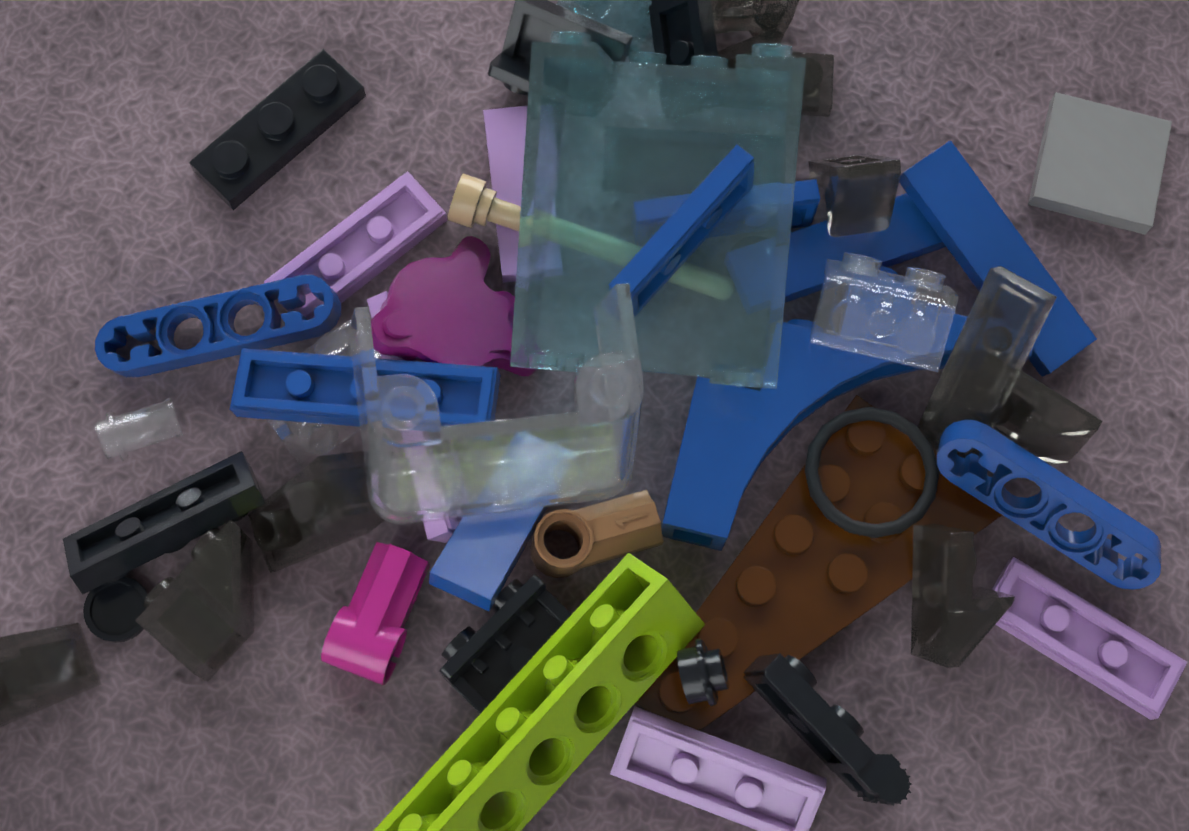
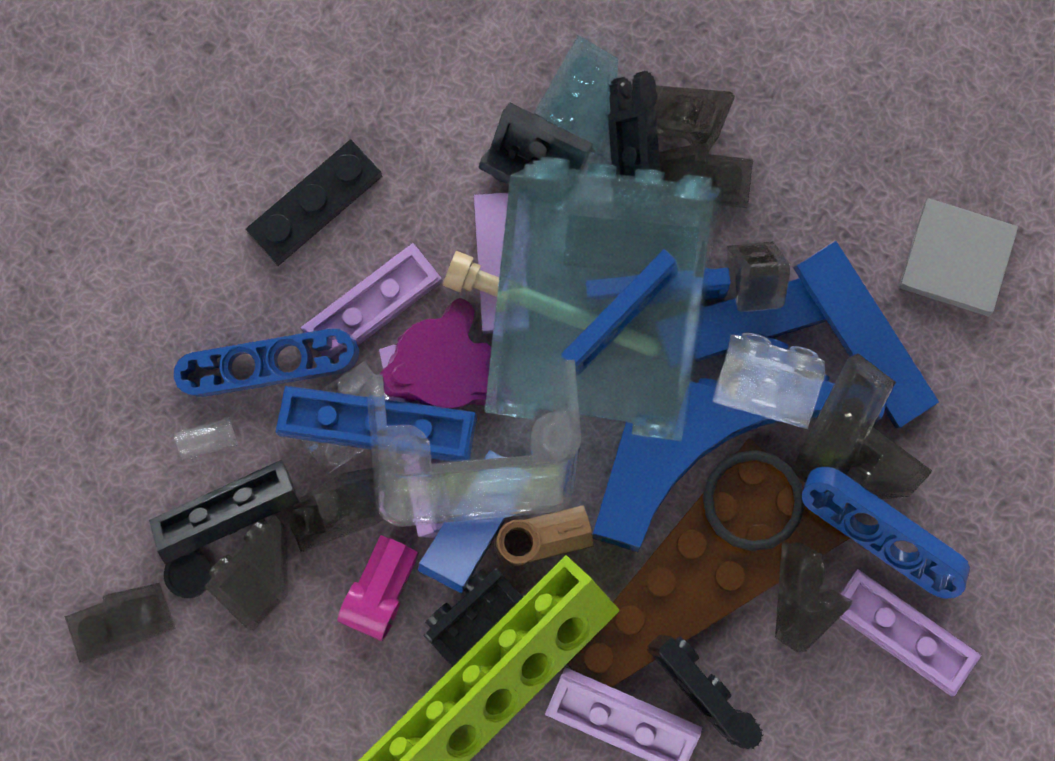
camera: 10 degrees right, 5 degrees up
(702, 673) = (614, 647): black plate -> none

